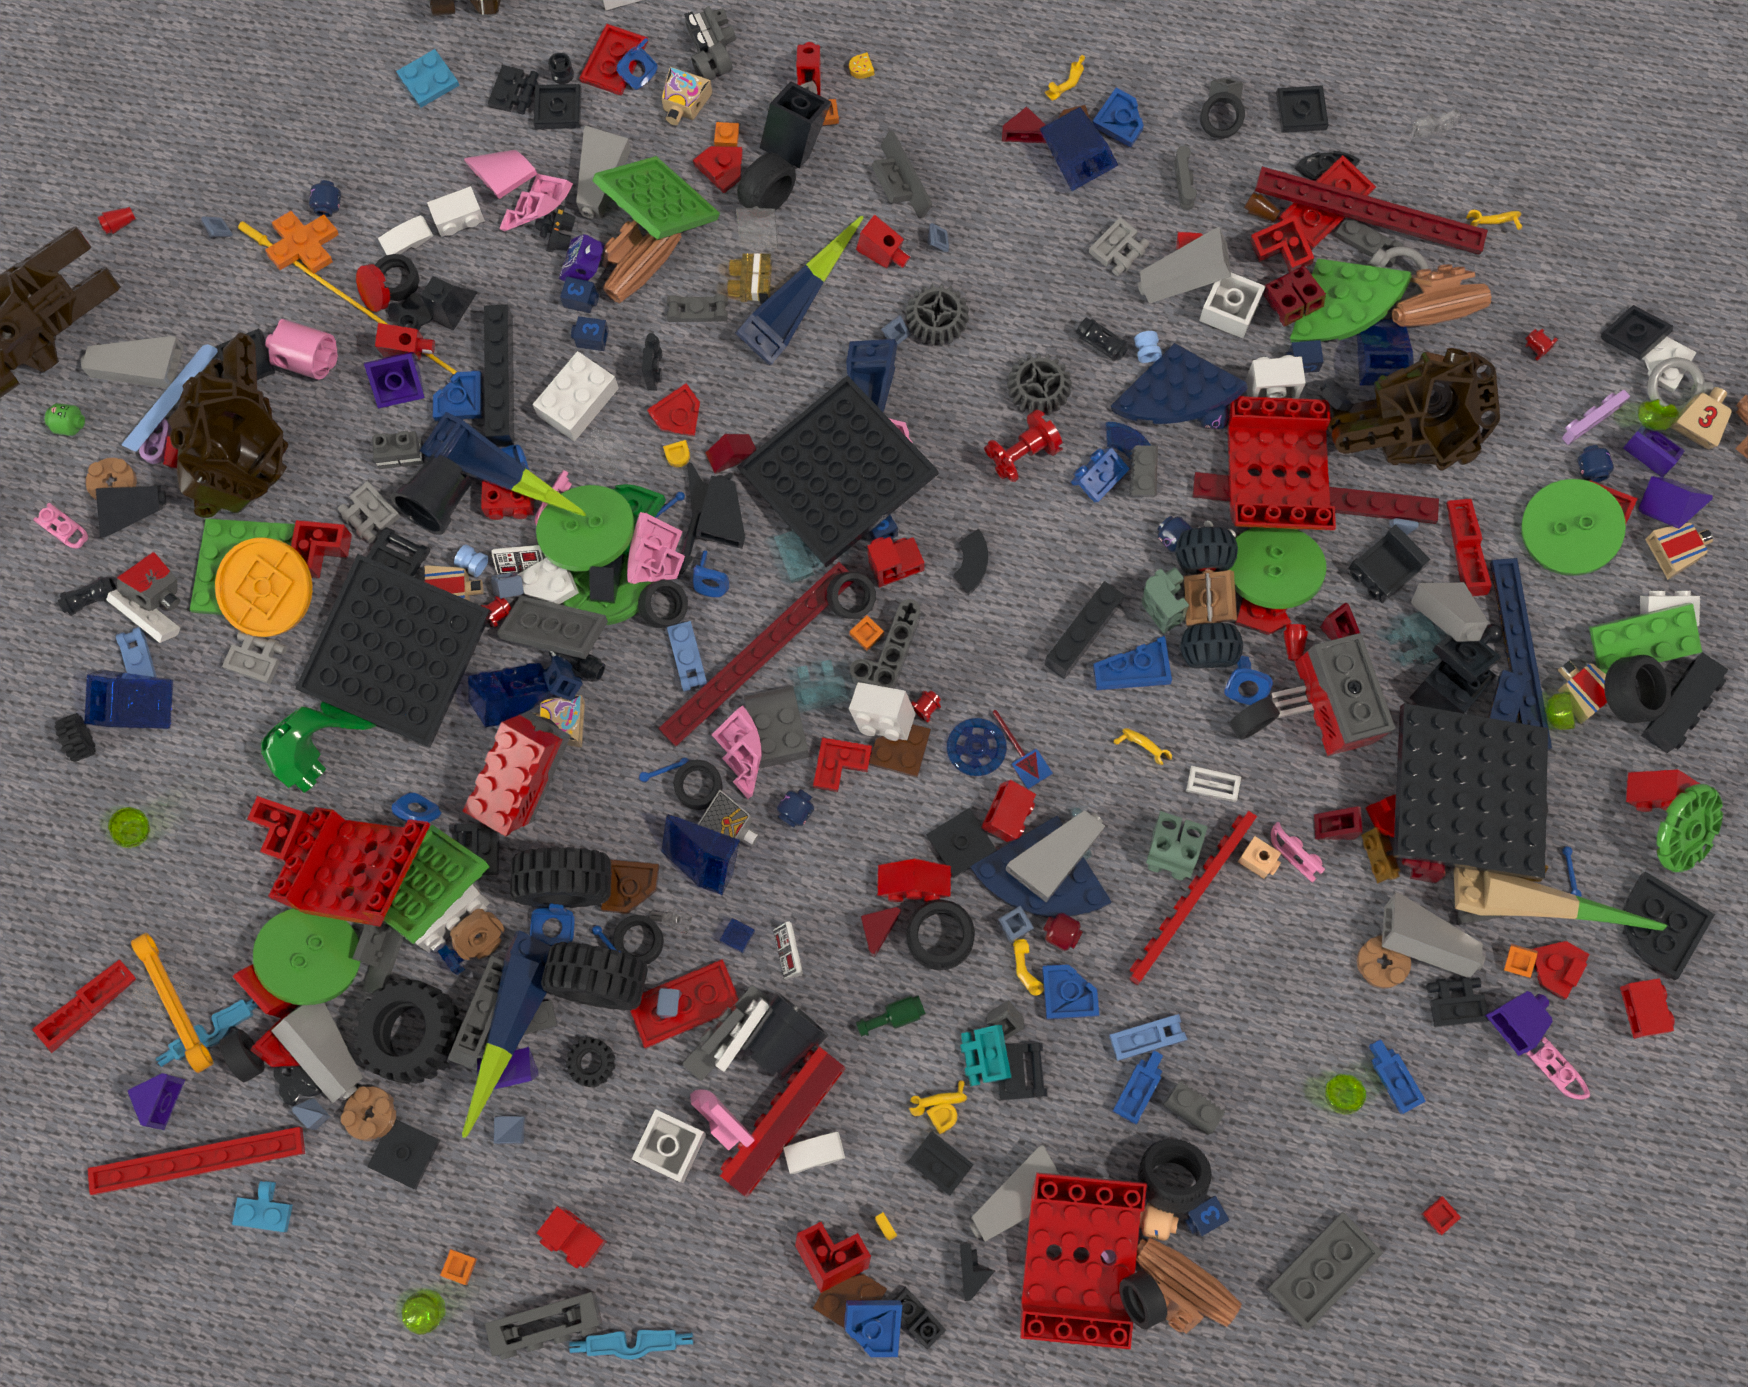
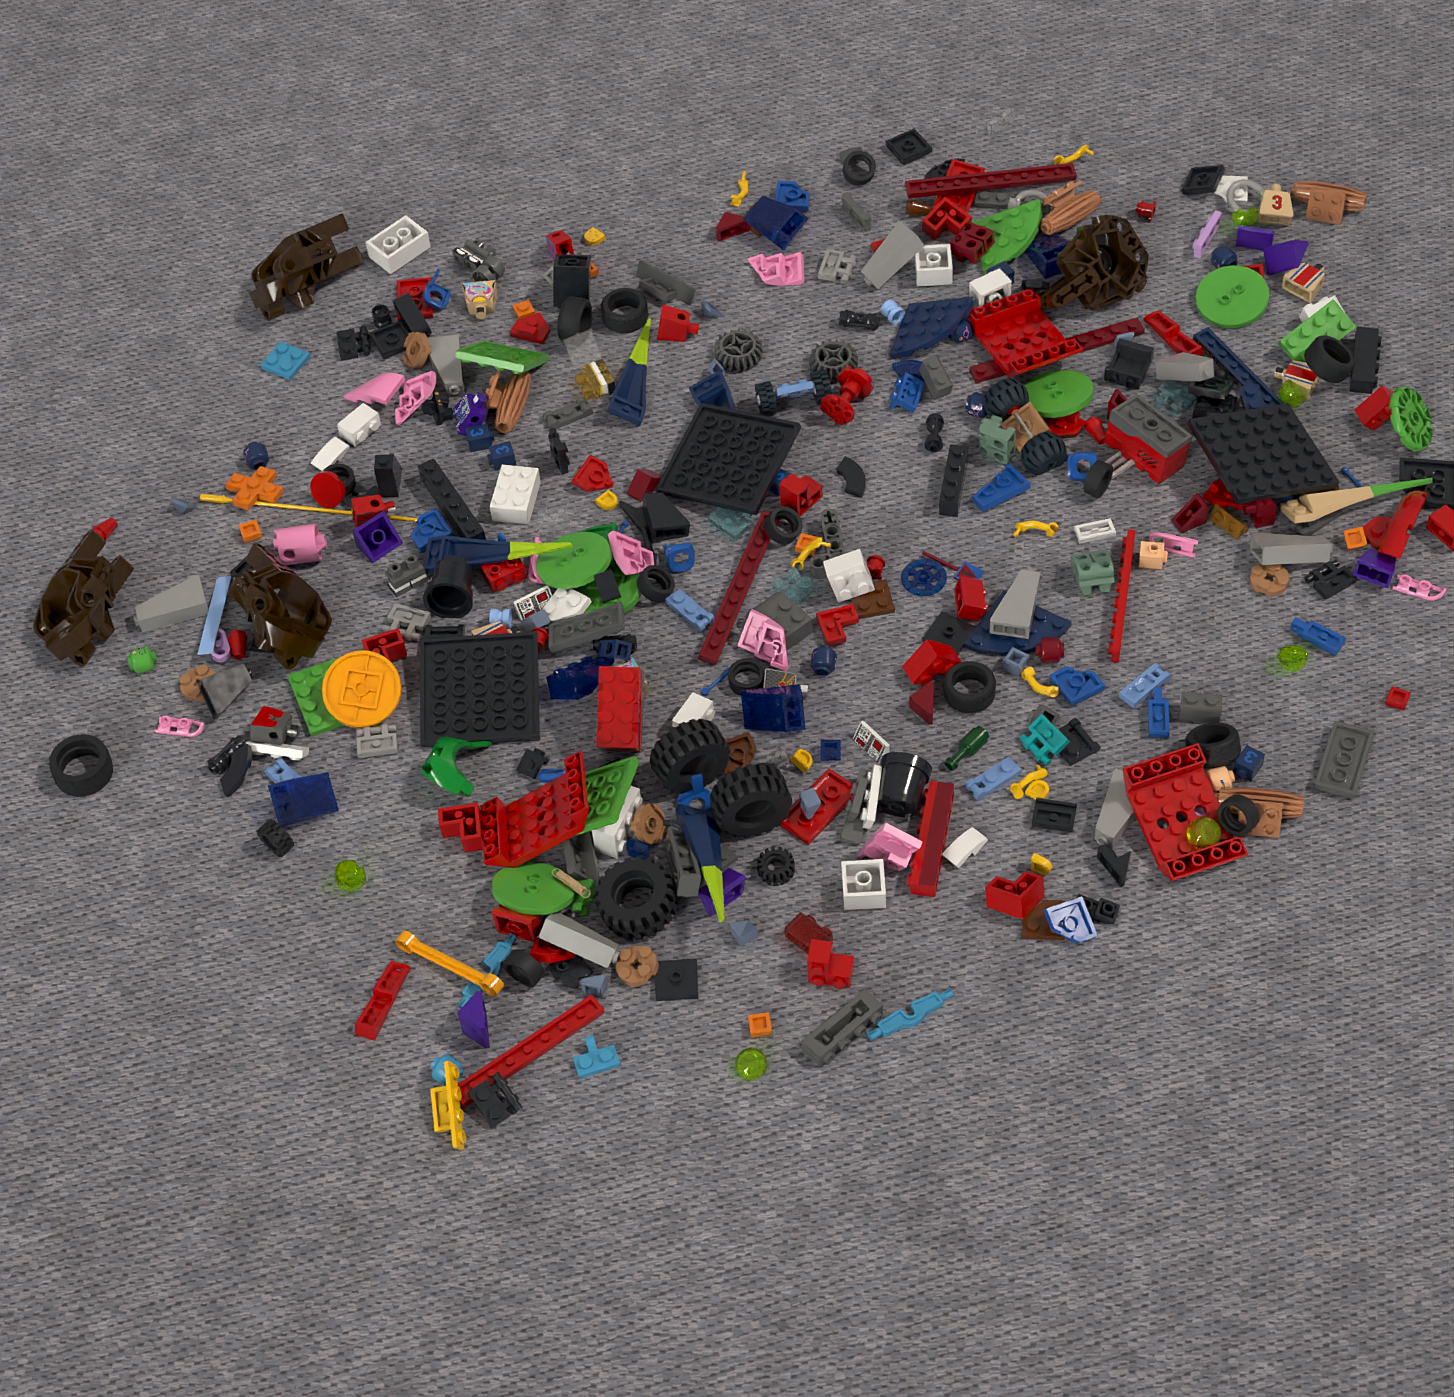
camera: 25 degrees left, 20 degrees down
(69, 1195) = (446, 1107): none -> yellow bracket
(93, 615) = (234, 777): none -> black tile
(98, 1140) = (438, 1071): none -> dark azure head
(118, 1209) = (488, 1102): none -> black plate
(267, 299) = (250, 531): none -> orange plate
(349, 971) = (570, 882): none -> tan piece
(361, 988) = (581, 904): none -> bright green plate
(403, 776) = (532, 762): none -> black bracket
(571, 139) = (416, 349): none -> medium nougat plate
(575, 1178) = (805, 928): none -> clear red brick
(592, 86) = (411, 314): none -> black beam
(607, 811) = (695, 708): none -> white brick
(697, 933) = (802, 760): none -> yellow tile
(840, 213) = (624, 322): none -> black tyre
(862, 644) = (807, 550): none -> yellow piece
(901, 1072) = (993, 778): none -> medium blue plate
(929, 405) = (767, 398): none -> black plate
(1050, 217) = (779, 269): none -> bright pink slope
(1093, 1293) = (1203, 832): none -> clear neon green hair
(1106, 539) = (934, 425): none -> black piece
(1590, 980) = (1402, 521): none -> red brick

